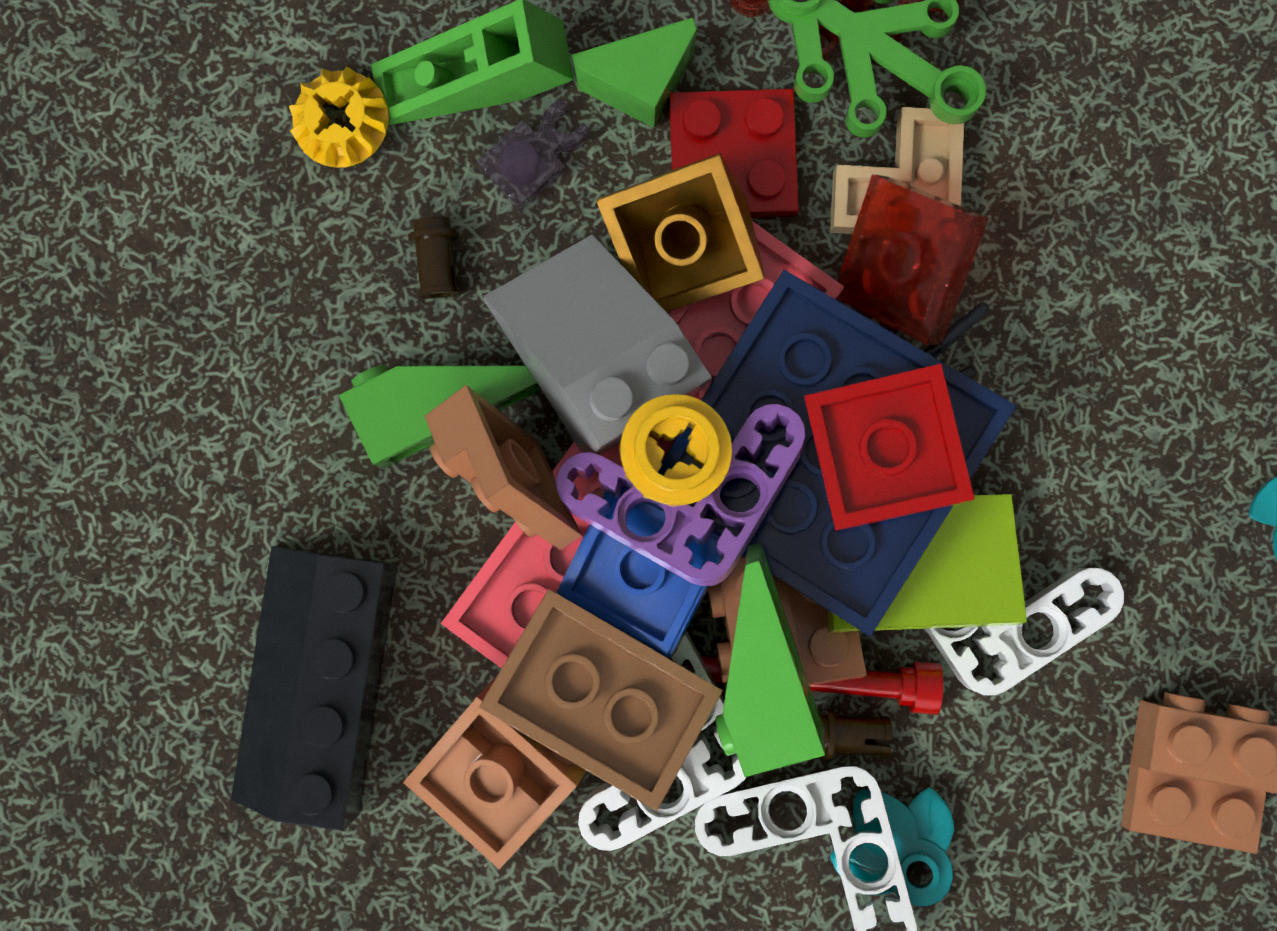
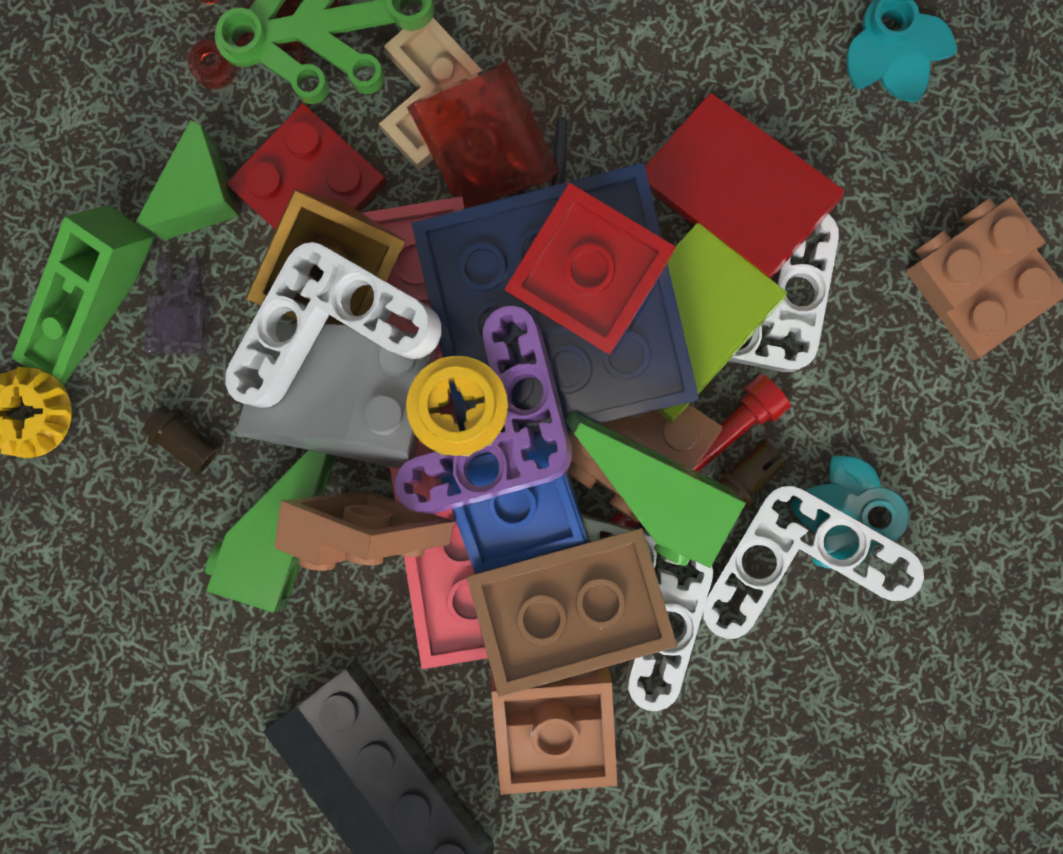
camera: 45 degrees left, 0 degrees up
(660, 263) = (327, 298): none -> white beam
(1076, 500) = (741, 185): none -> red tile

